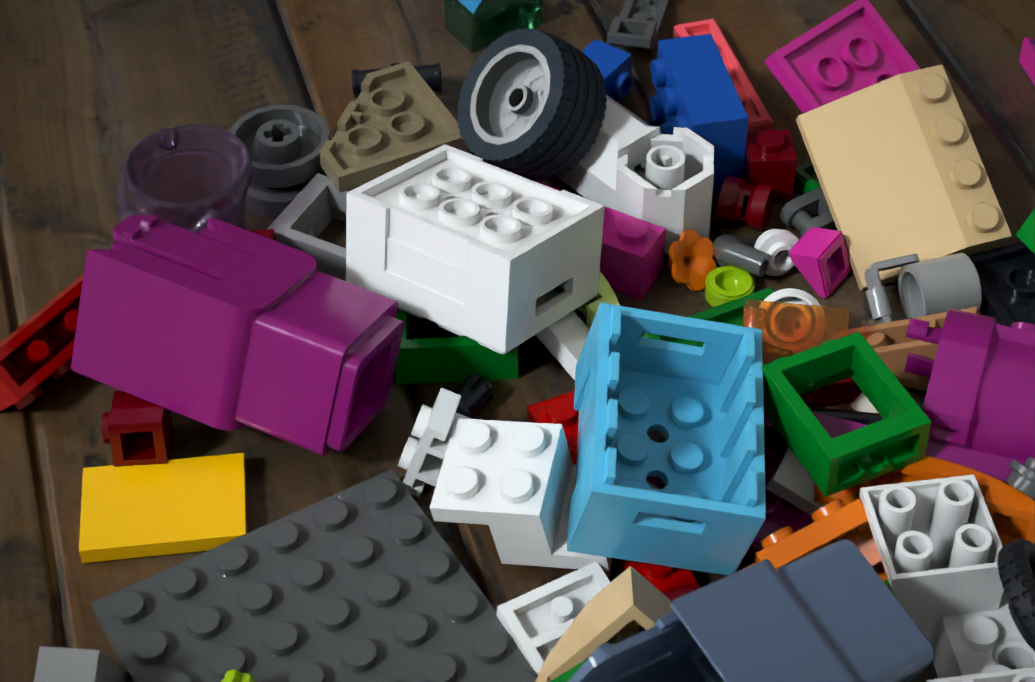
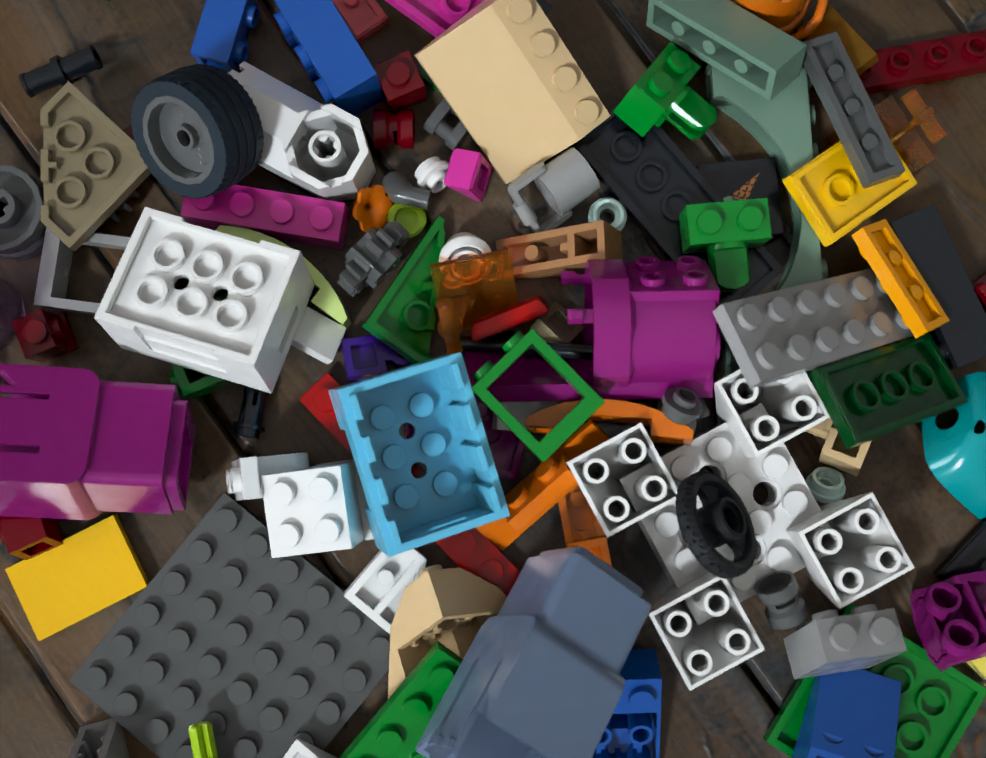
camera: 20 degrees left, 40 degrees up
(681, 279) = (373, 258): none -> dark grey gear

